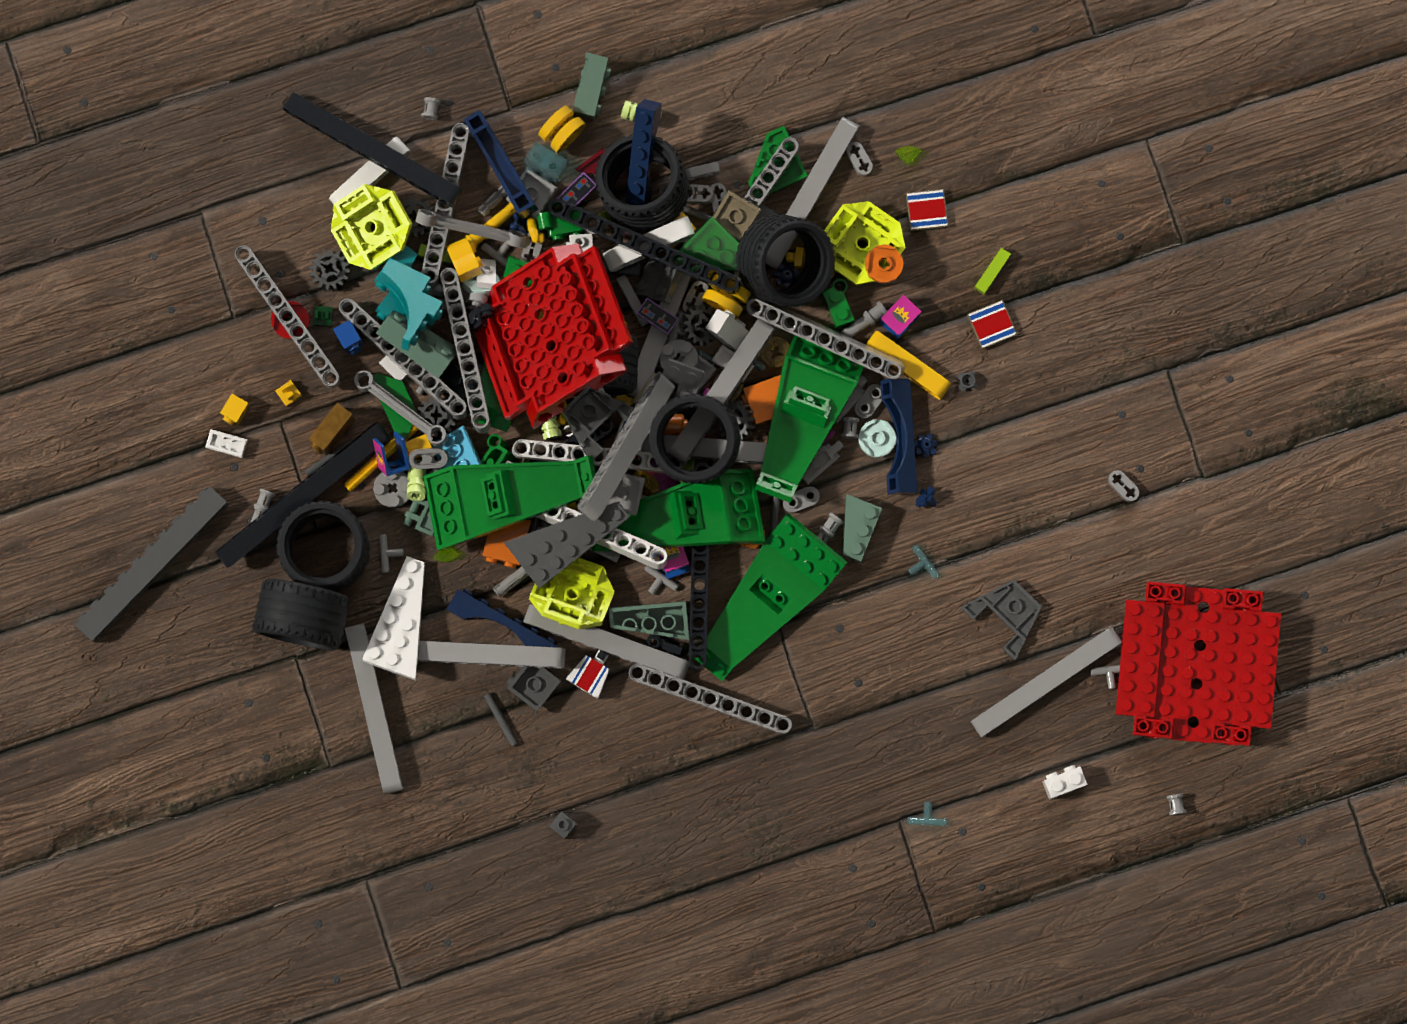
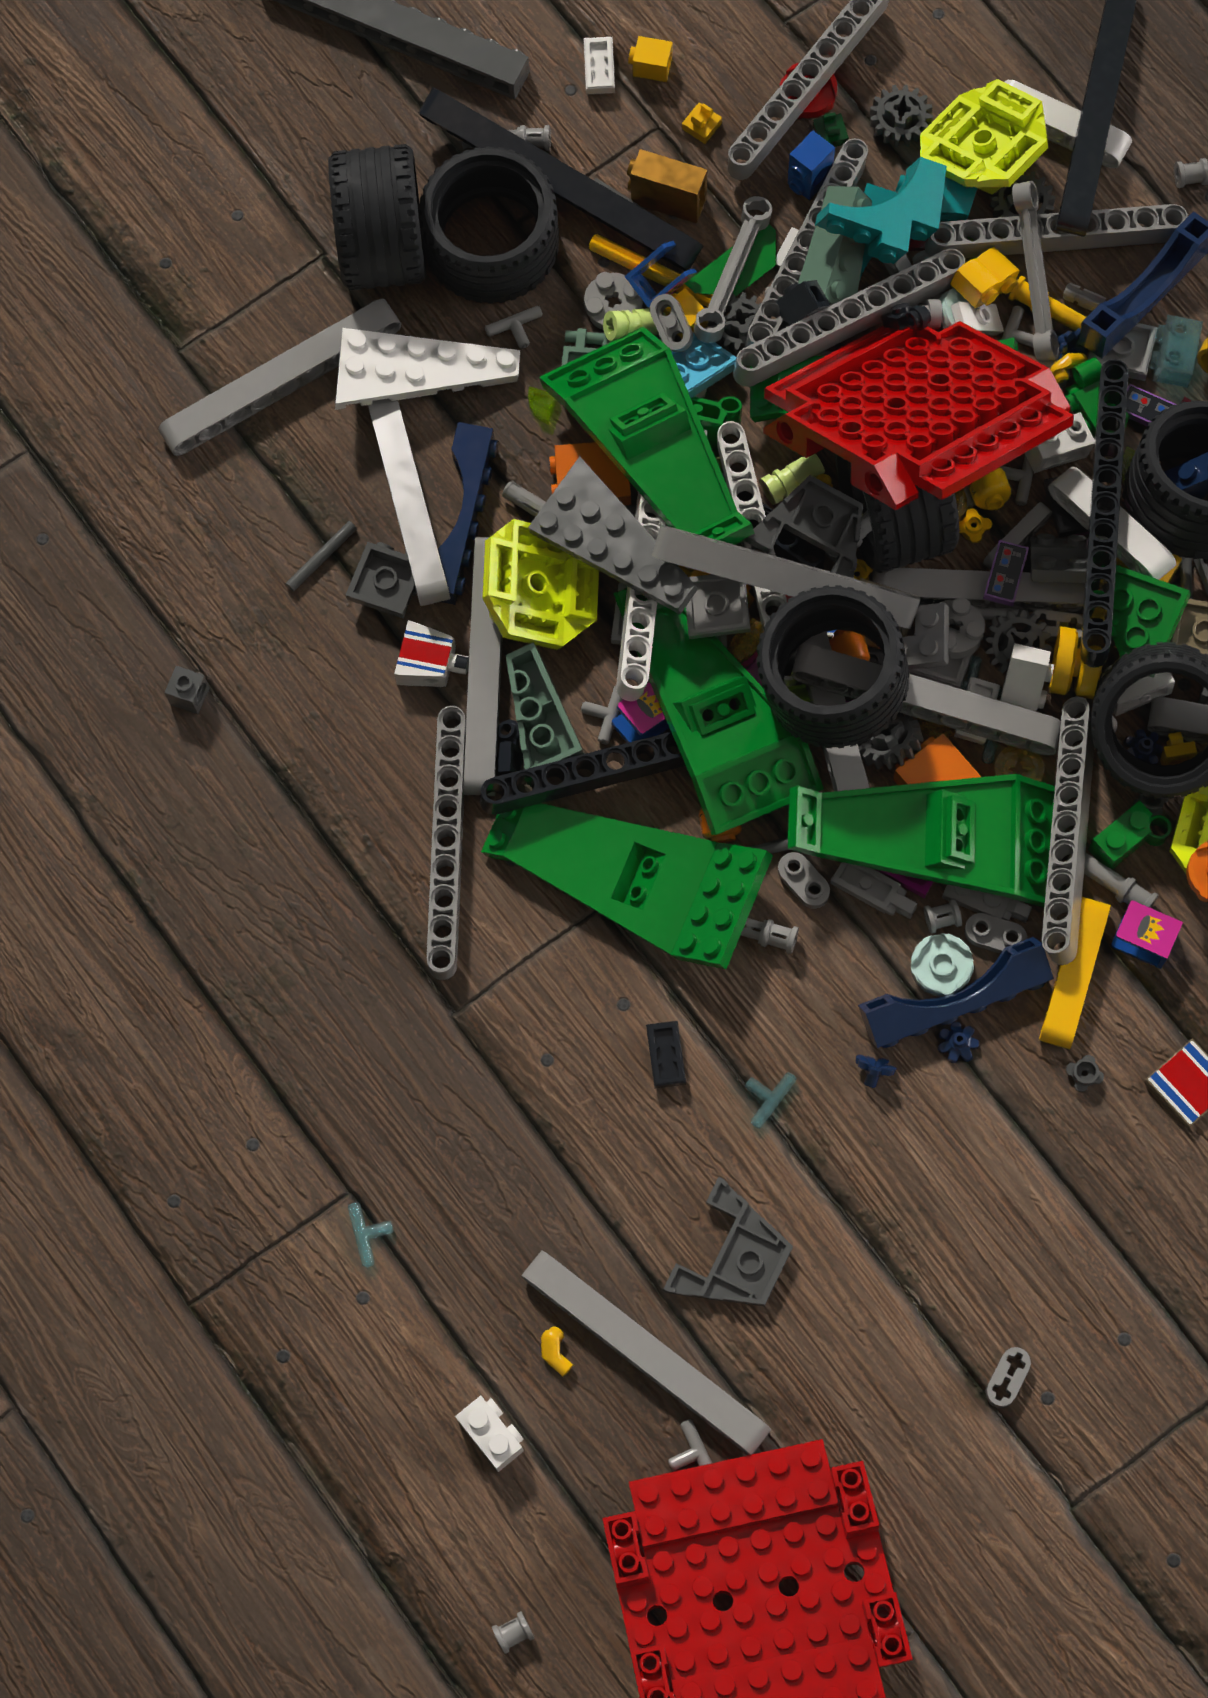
camera: 80 degrees right, 10 degrees down
(450, 375) = (801, 301): none -> black brick
(858, 527) = (789, 977): sand green wedge -> none
(879, 613) = (666, 1054): none -> black plate
(1028, 734) = (551, 1353): none -> yellow arm

